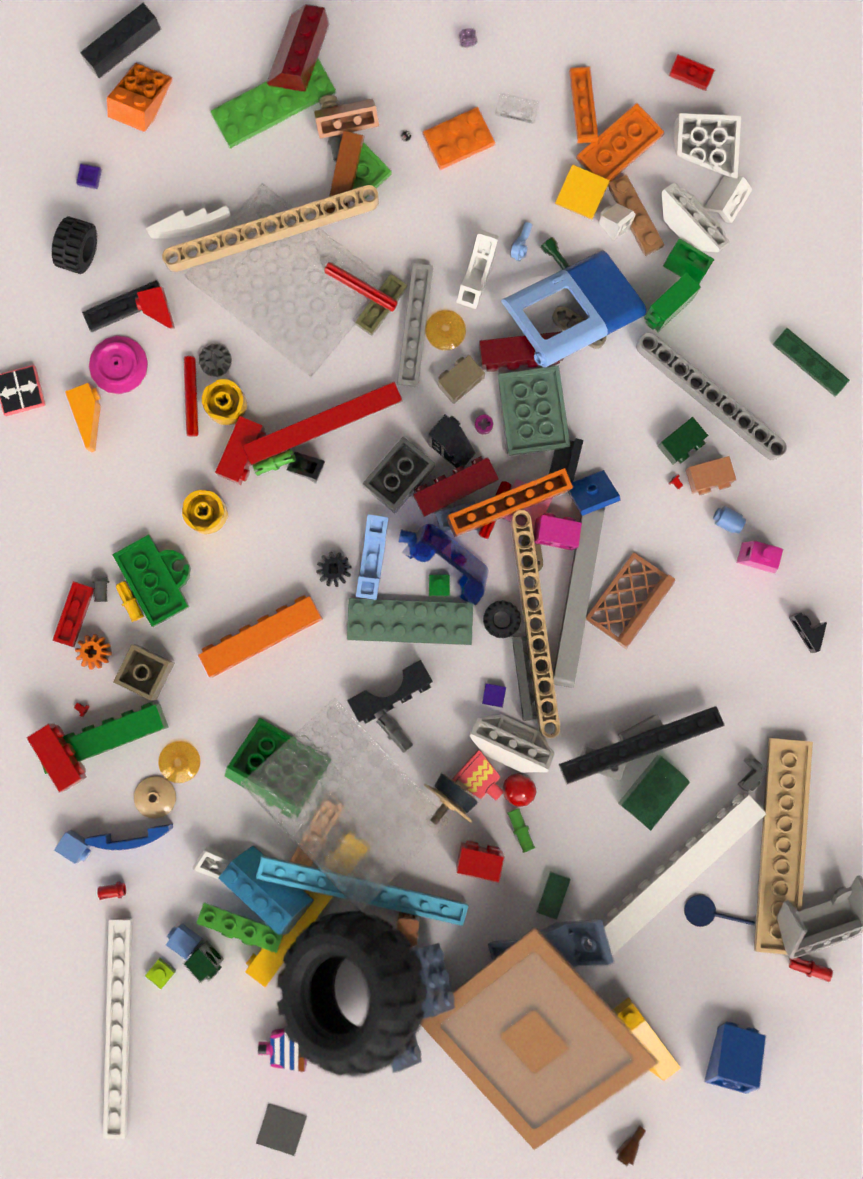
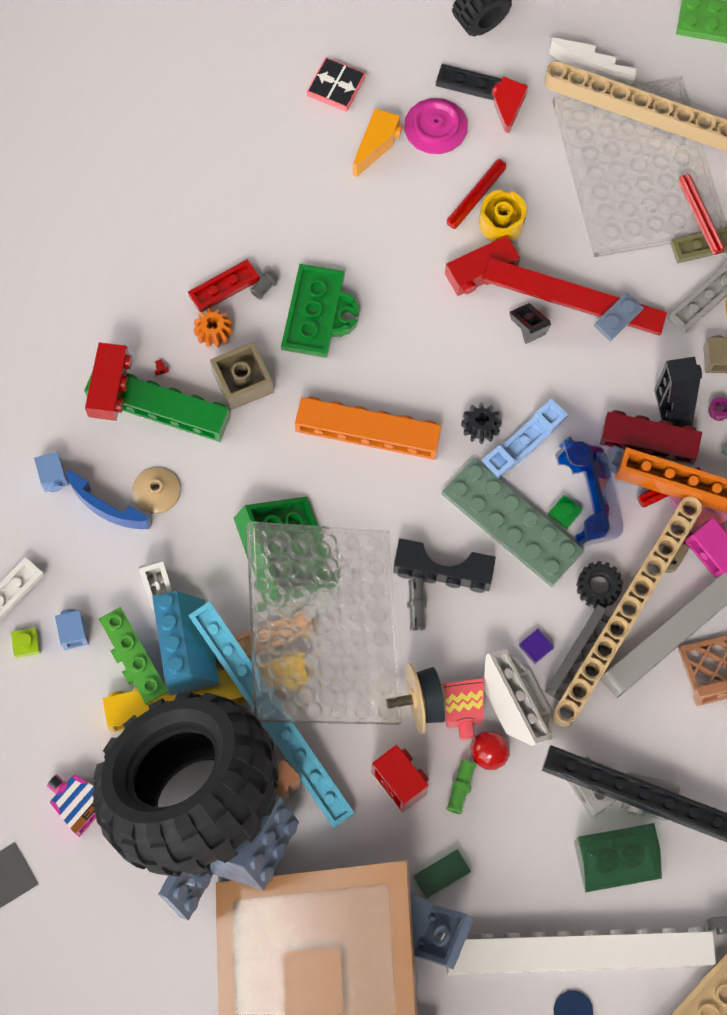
camera: 35 degrees right, 15 degrees down
(110, 891) = (53, 539): red pin -> none
(129, 601) = (279, 313): yellow axle -> none
(189, 762) = (203, 488): clear yellow dish -> none
(193, 514) = (409, 289): yellow brick -> none
(204, 962) = (74, 658): dark green brick -> none
(222, 365) = (526, 189): dark grey gear -> none
(274, 462) = (503, 296): bright green pin -> none
(365, 414) = (618, 316): none -> sand blue plate
(398, 475) = (606, 388): dark grey brick -> none

